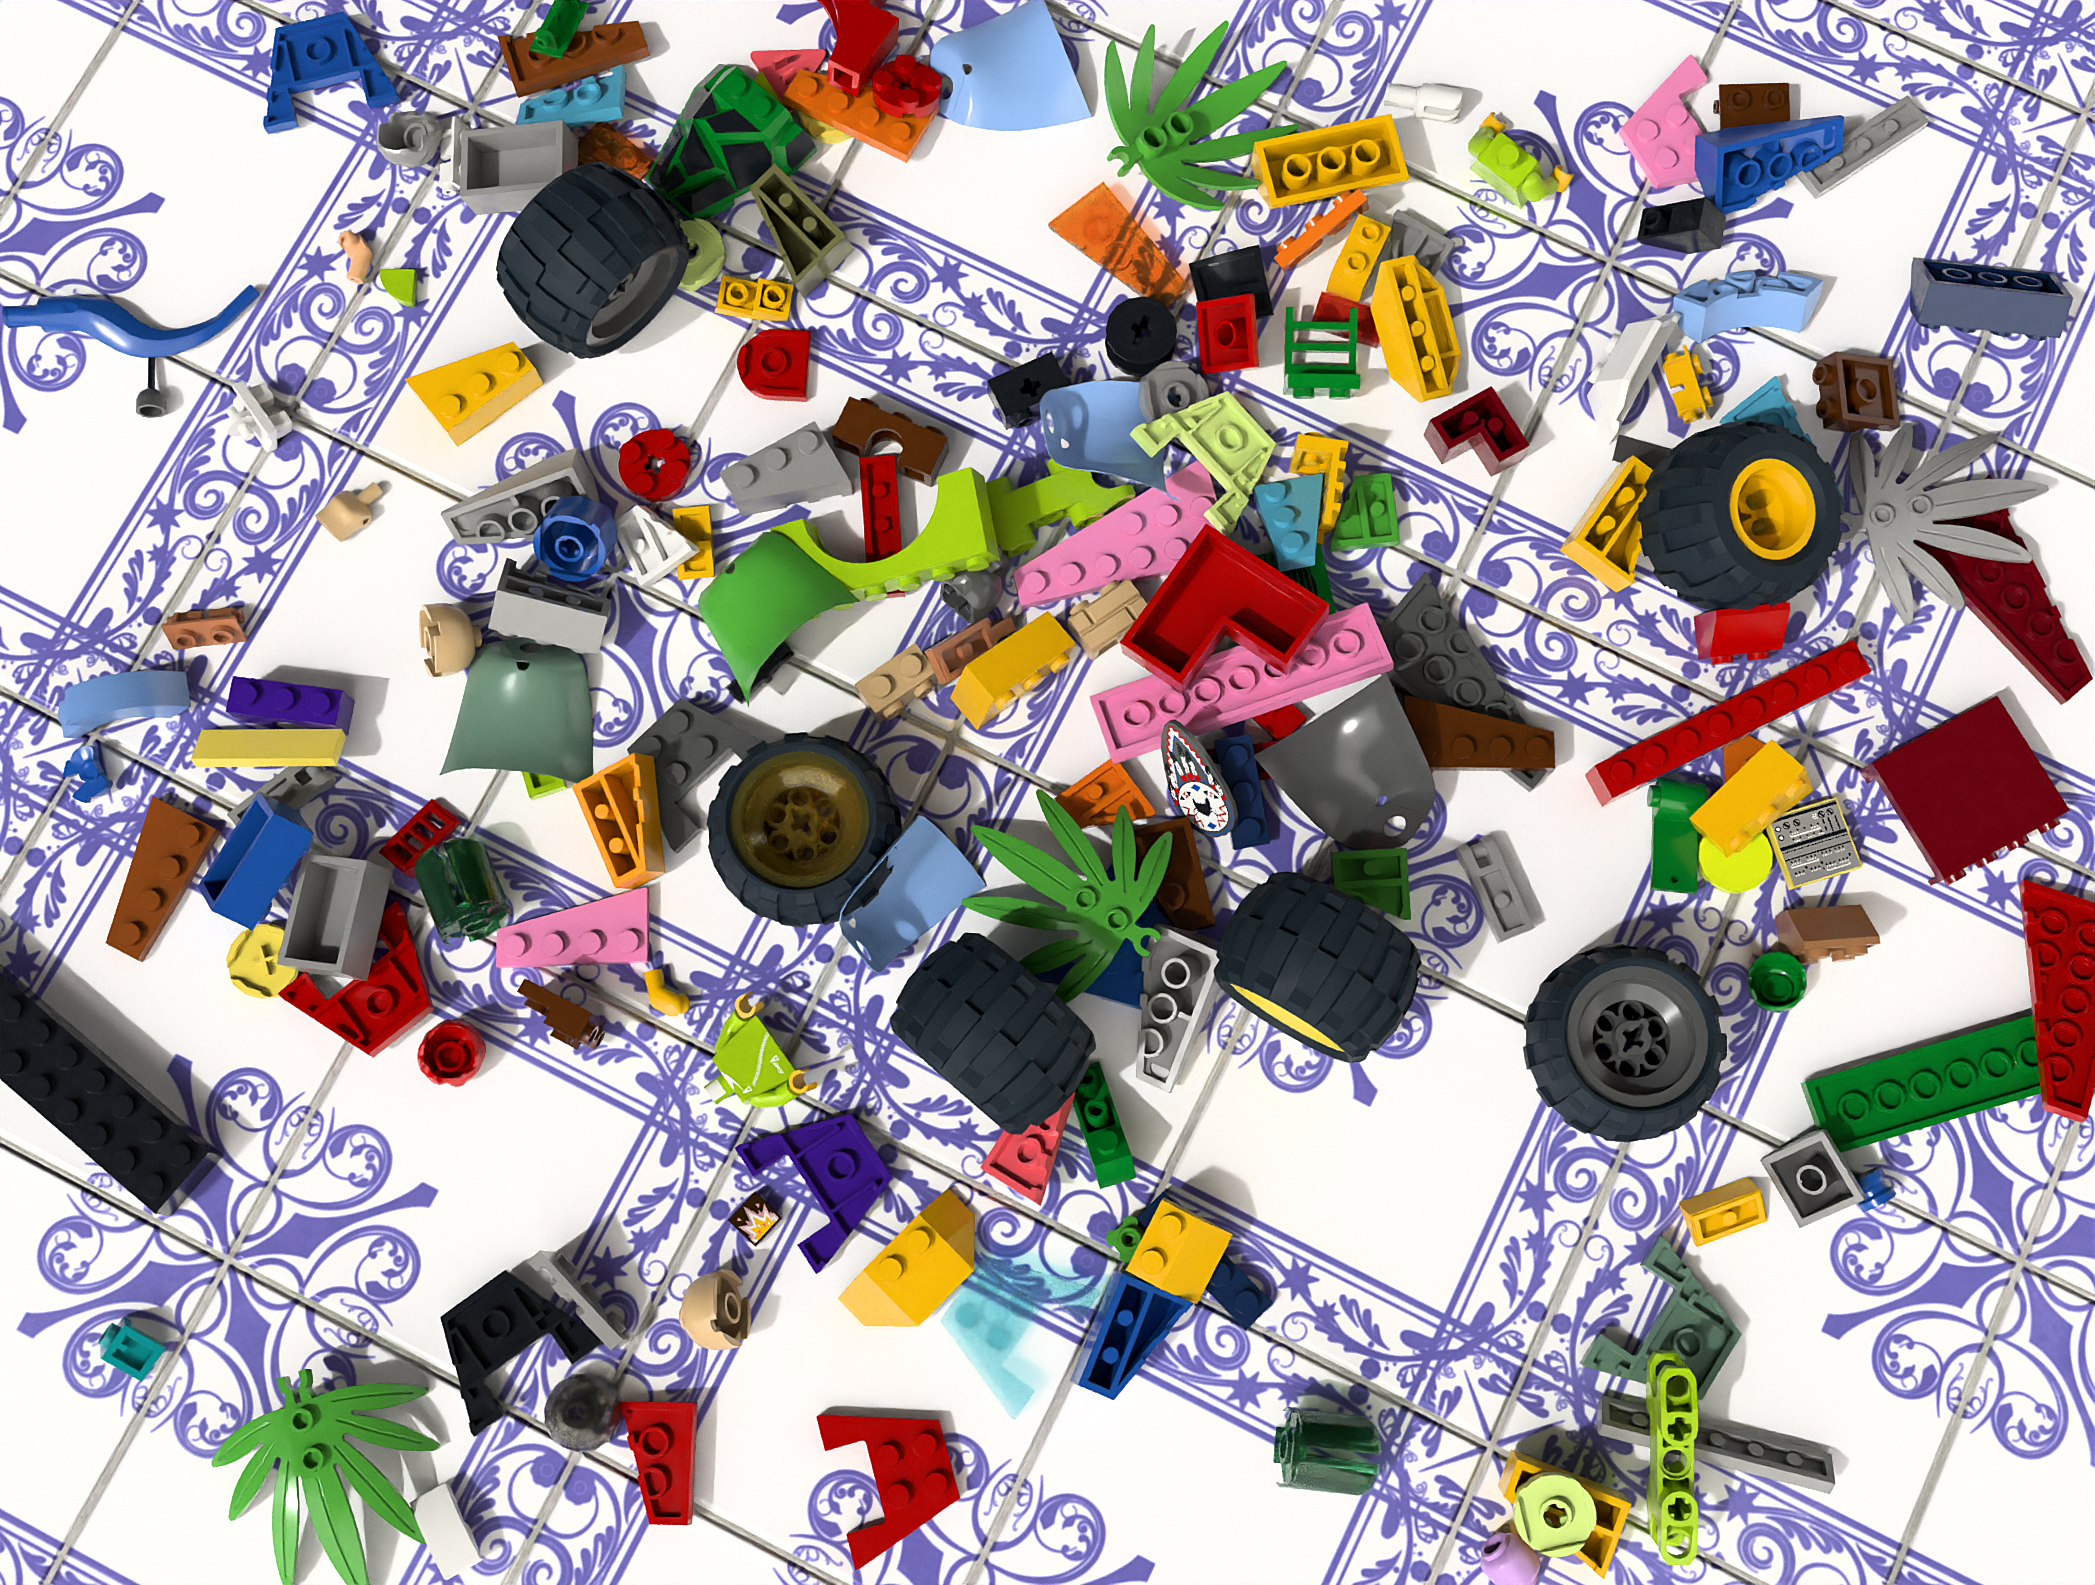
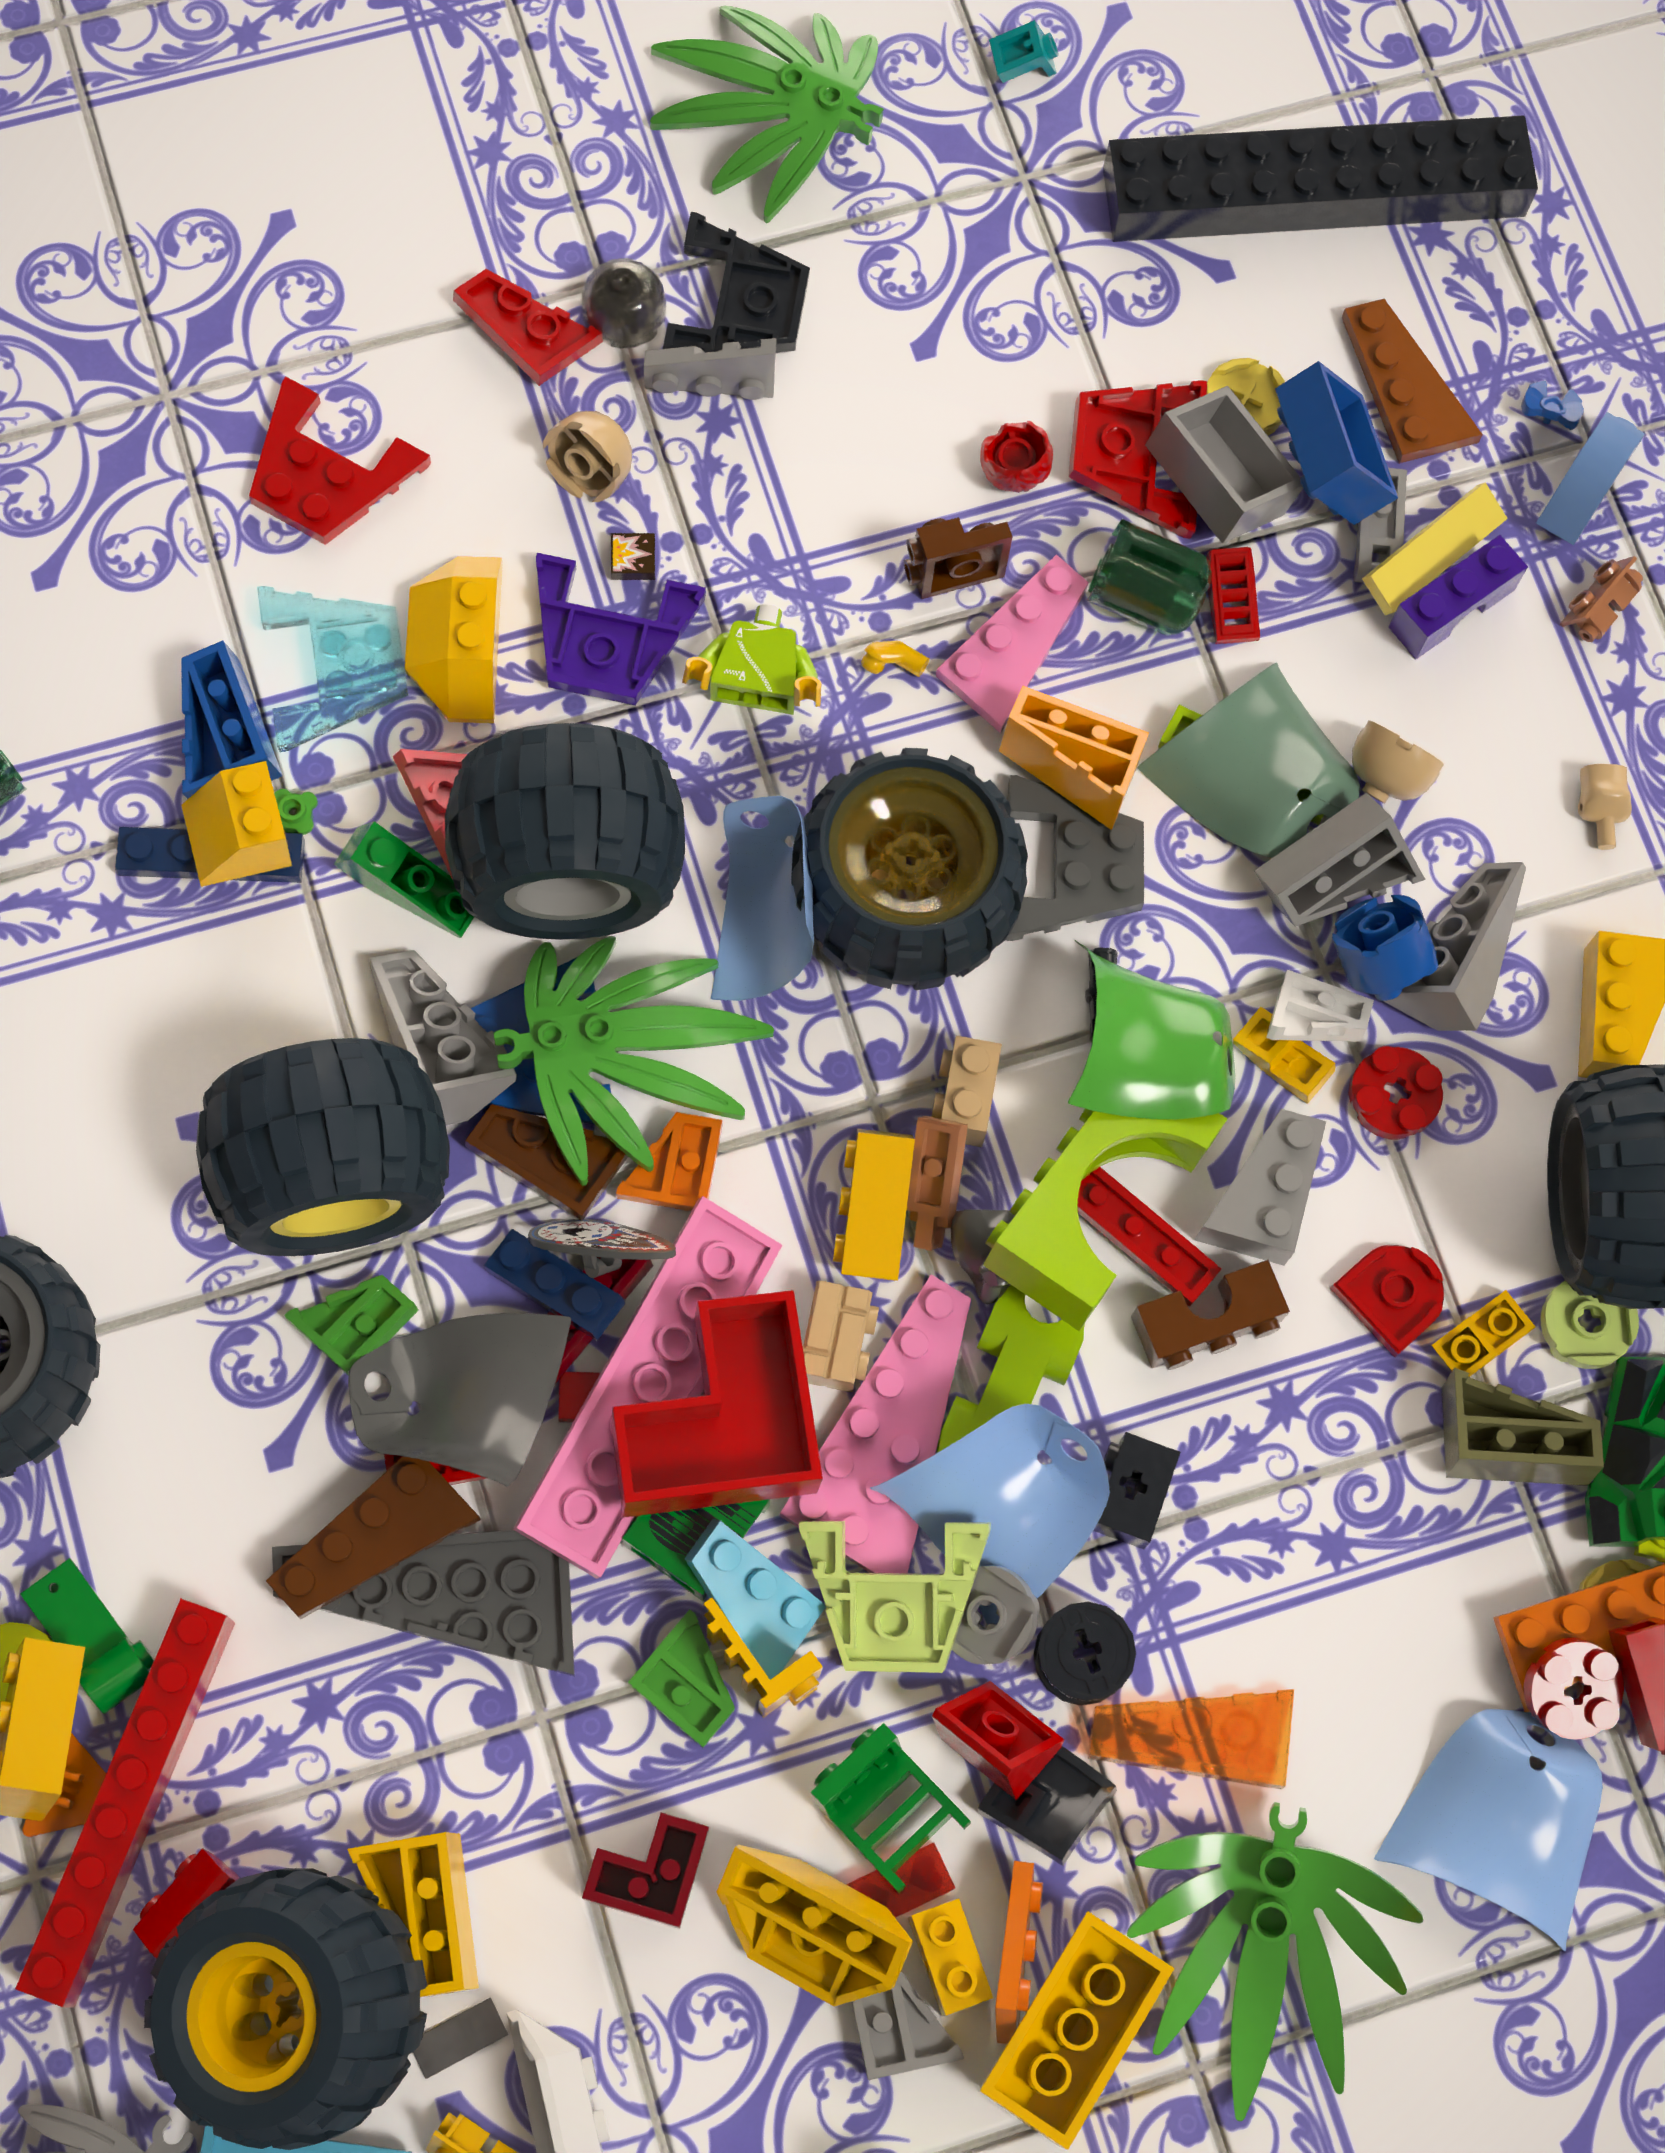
camera: 130 degrees right, 5 degrees down
(445, 1531) = (638, 132): white slope -> none
(1495, 889) = (226, 1417): light grey plate -> none

